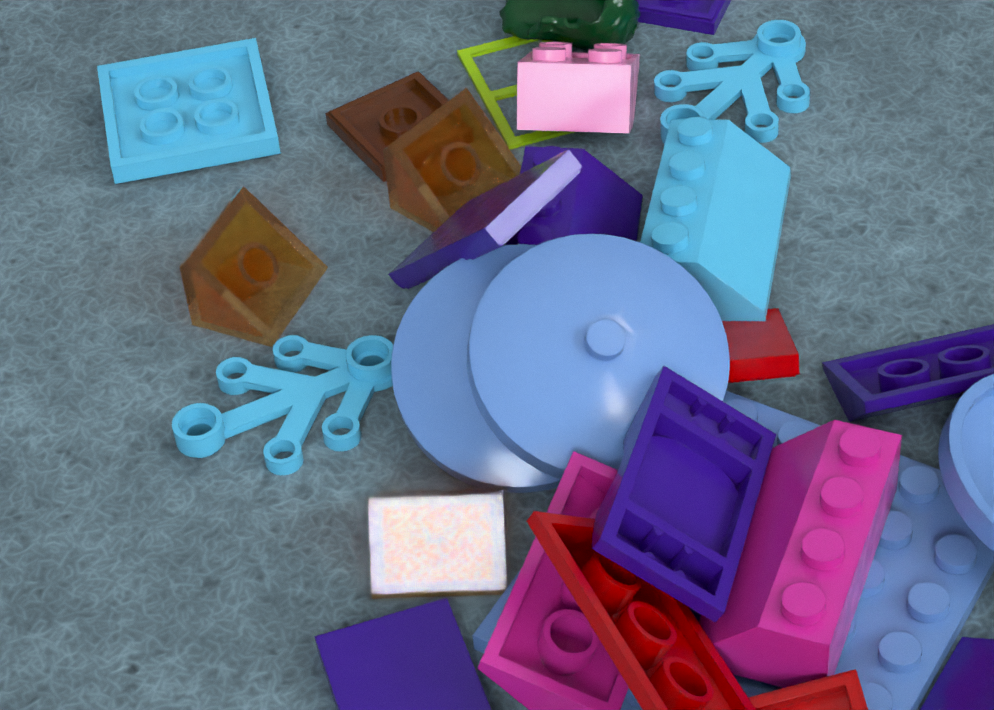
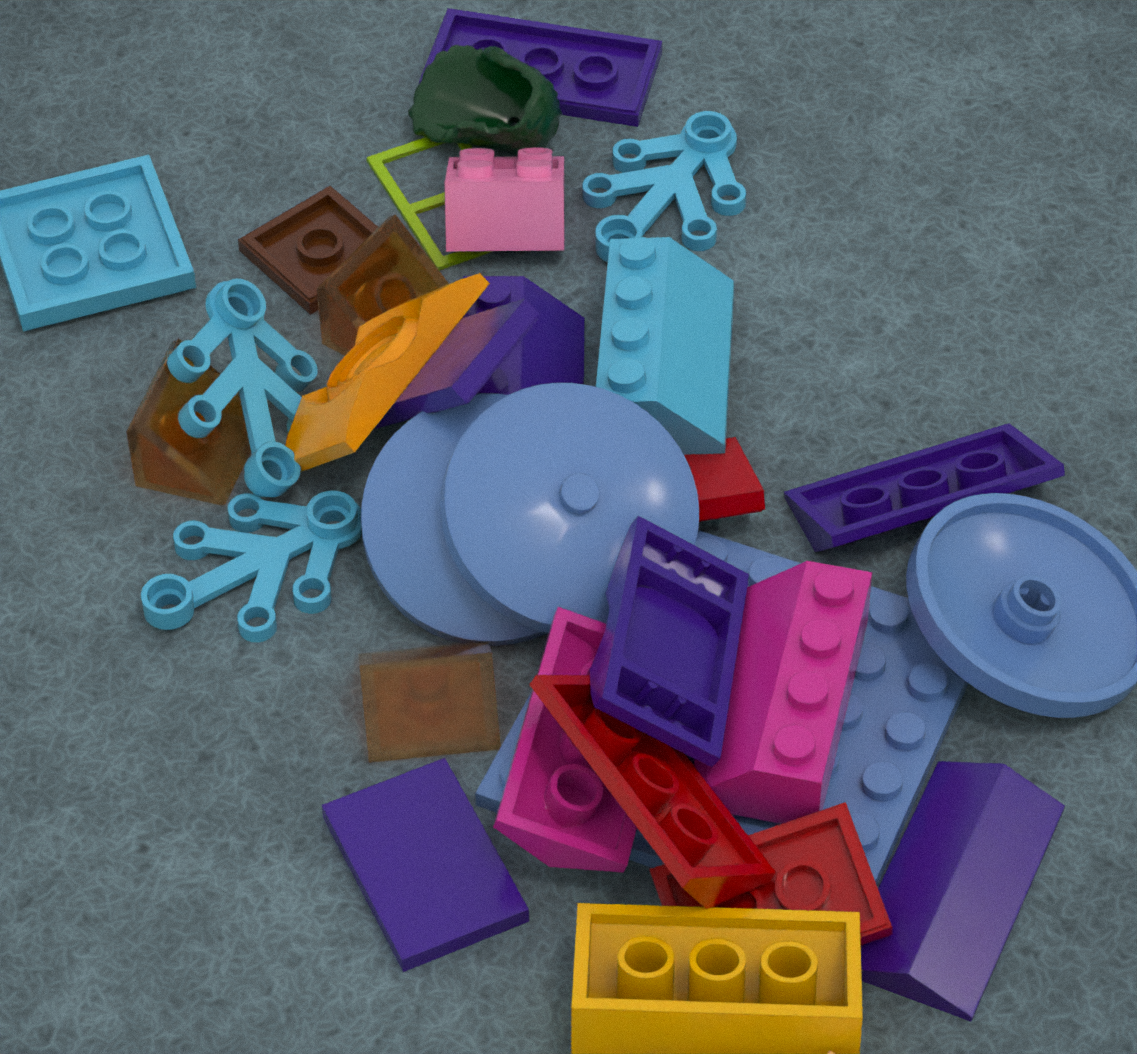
camera: 10 degrees left, 5 degrees up
(305, 168) = (238, 312): none -> medium azure plant
(428, 224) = (376, 372): none -> light orange slope

